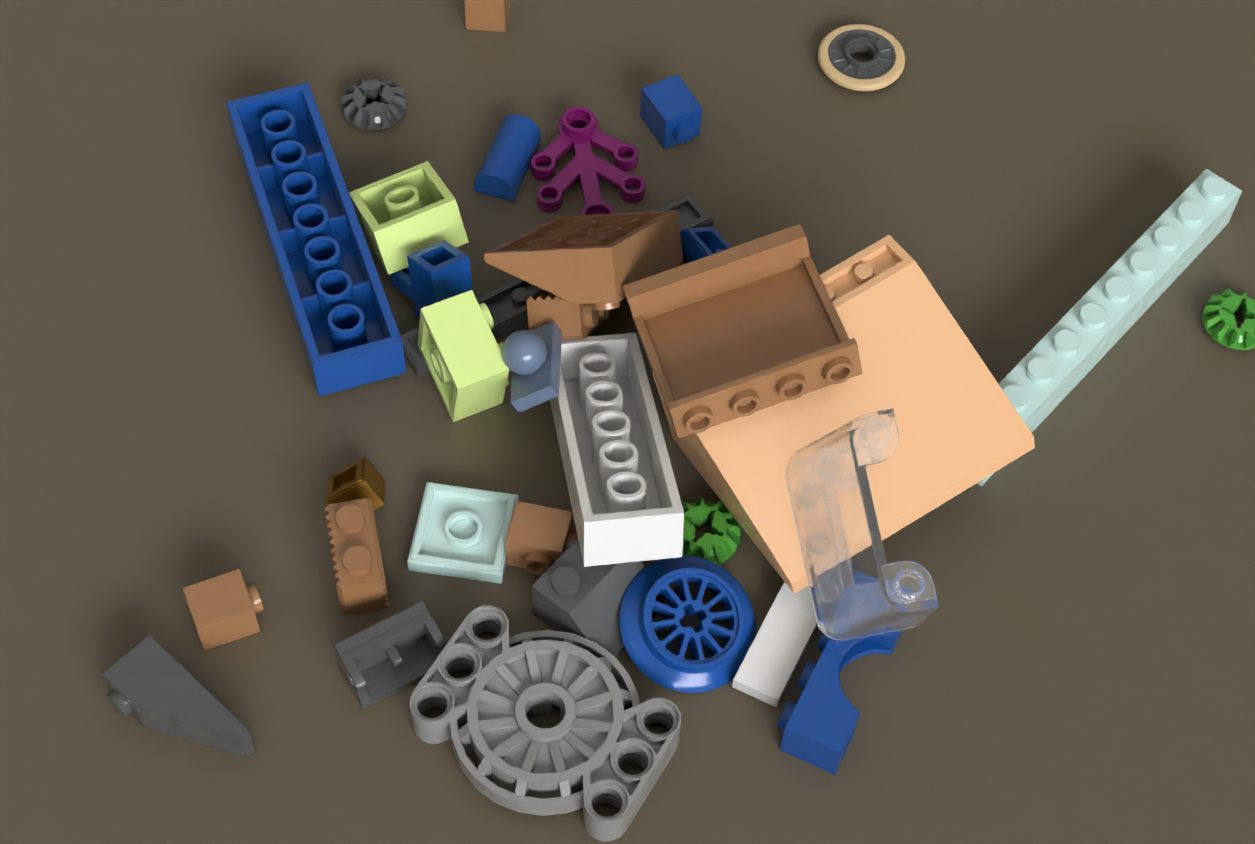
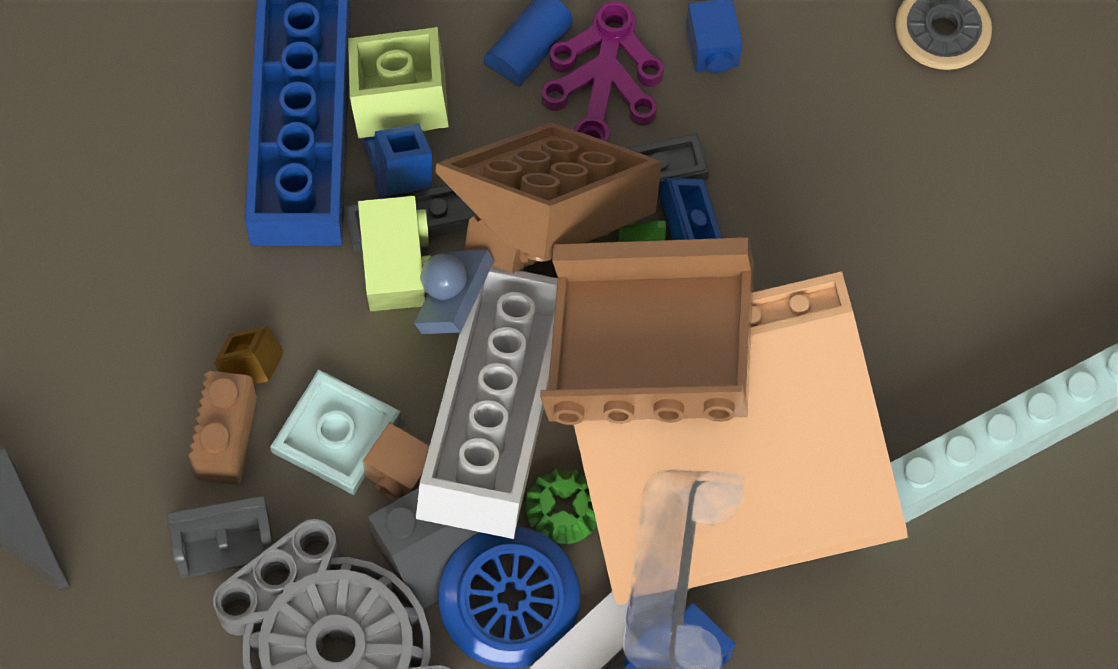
camera: 20 degrees right, 10 degrees up
(223, 609) = (83, 440): medium nougat brick -> none

